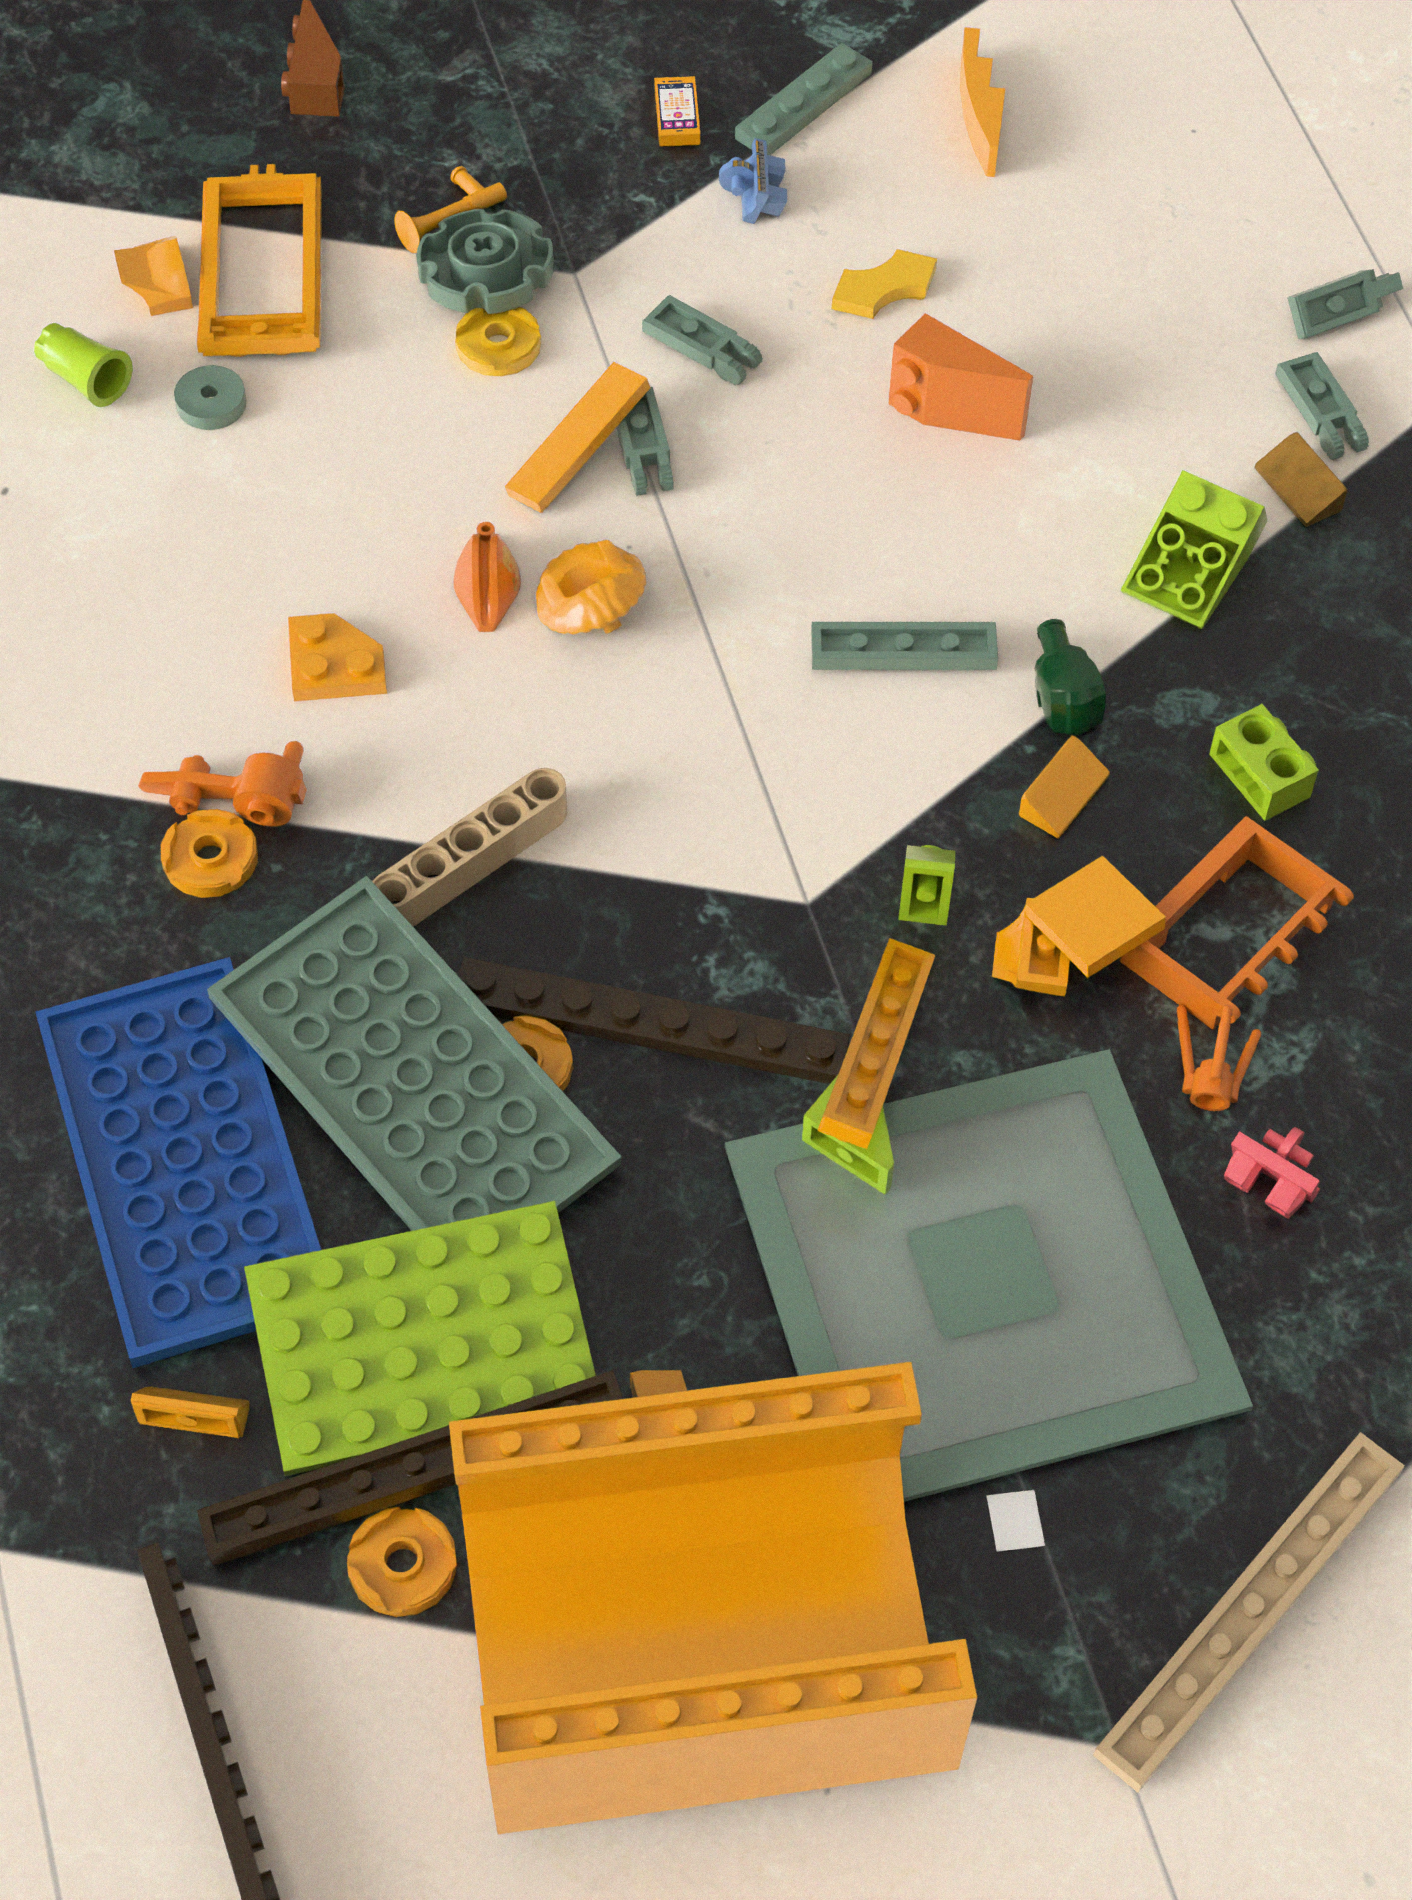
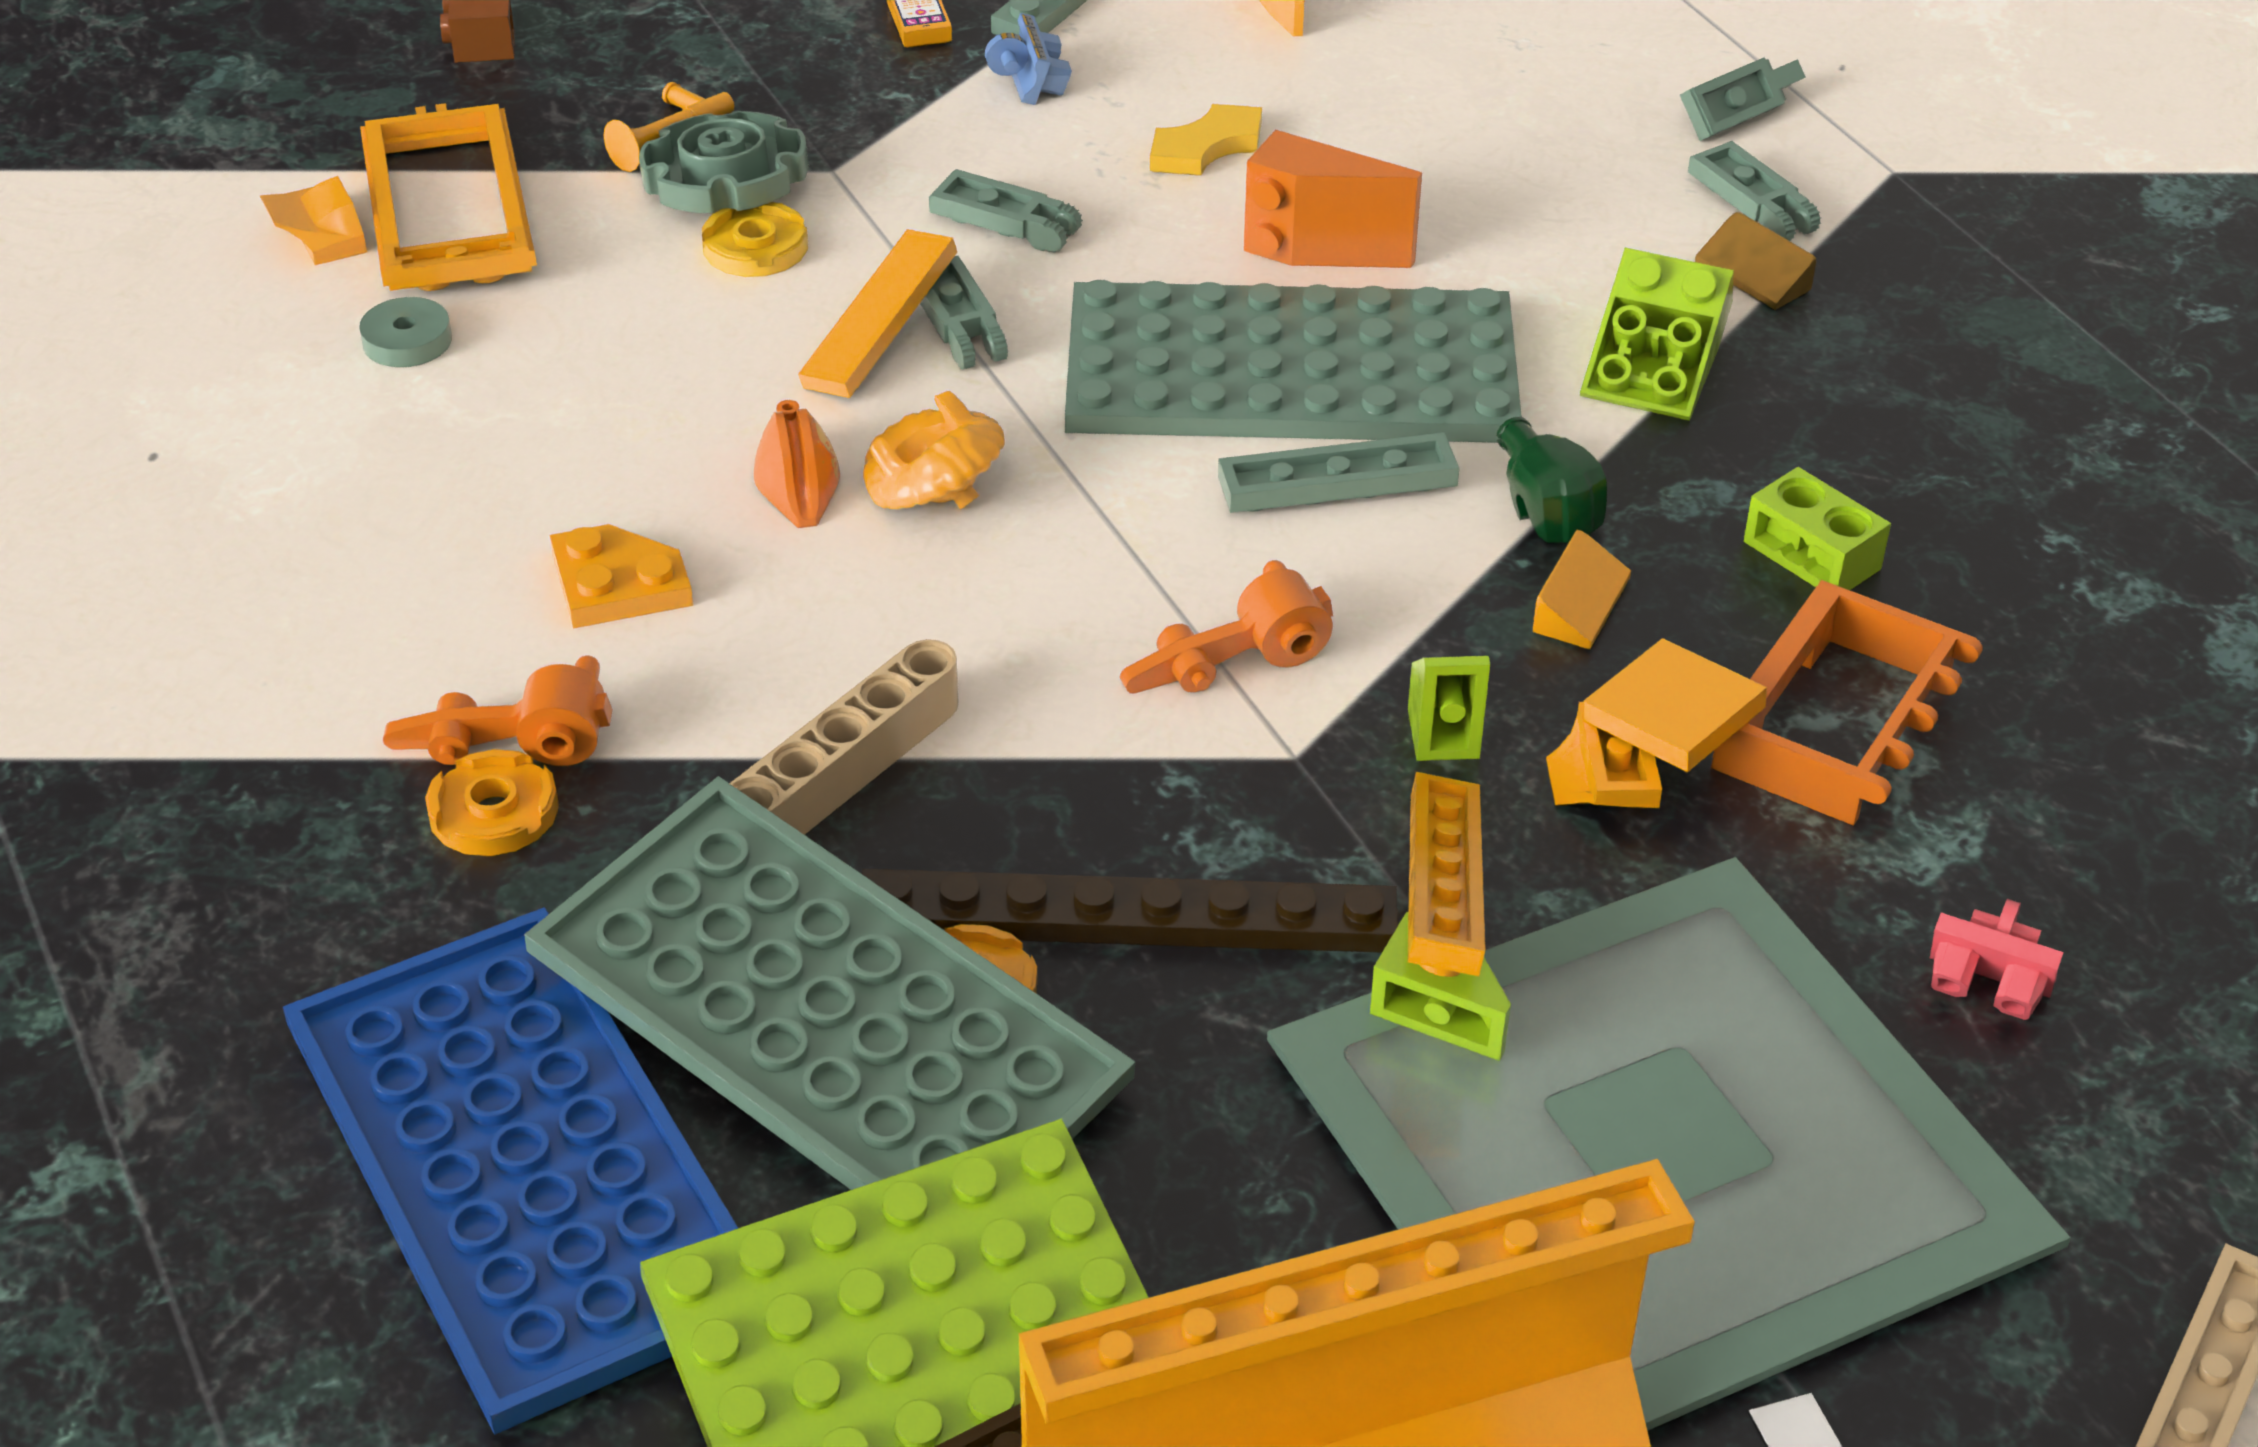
camera: 10 degrees left, 15 degrees down
(89, 366) = (244, 310): lime plant -> none
(821, 783) = (1275, 615): none -> orange piece
(897, 526) = (1290, 361): none -> sand green plate
(1212, 1083) = (1879, 874): orange plant -> none

